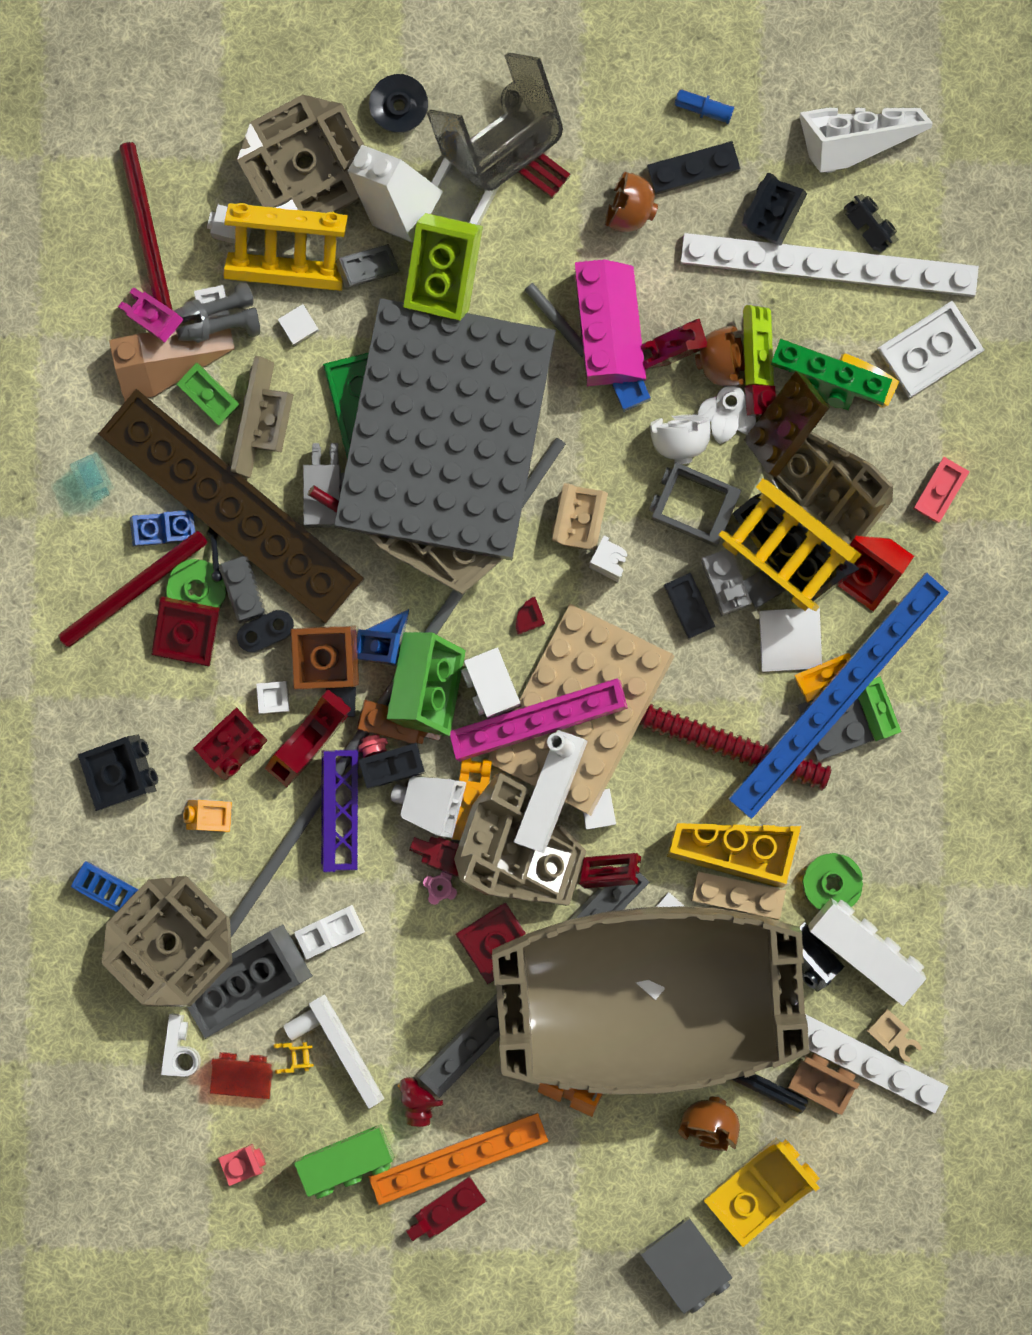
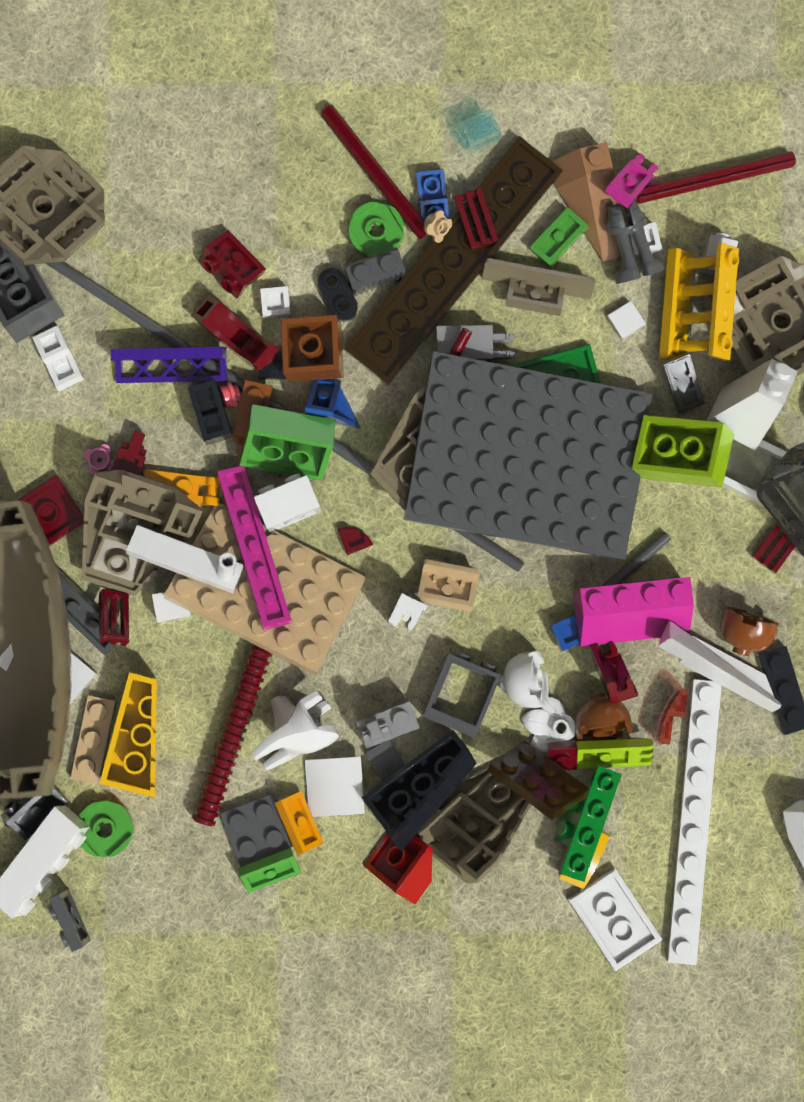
camera: 85 degrees right, 0 degrees up
(82, 875) = (106, 156): blue slope -> none
(118, 772) = (204, 161): black plate -> none
(184, 470) = (469, 197): none -> dark red tile
(185, 631) = (336, 220): dark red tile -> none
(195, 522) = (437, 225): none -> tan plate
(207, 815) = (164, 244): light orange bracket -> none
(216, 574) = (388, 246): black hinge -> none
(431, 803) = (175, 449): white torso -> none
(668, 235) = (718, 666): none -> white wedge
(689, 605) = (365, 690): black plate -> none
(711, 281) = (675, 708): none -> clear red slope
(731, 678) = (296, 730): none -> white piece
(773, 209) = (746, 766): black bracket -> none
(793, 516) = (431, 810): yellow fence -> none
(838, 695) = (279, 832): blue plate -> none
(866, 213) = (729, 869): black hinge -> none
(939, 914) = (66, 912): none -> dark grey plate
(941, 490) = (479, 930): coral plate -> none

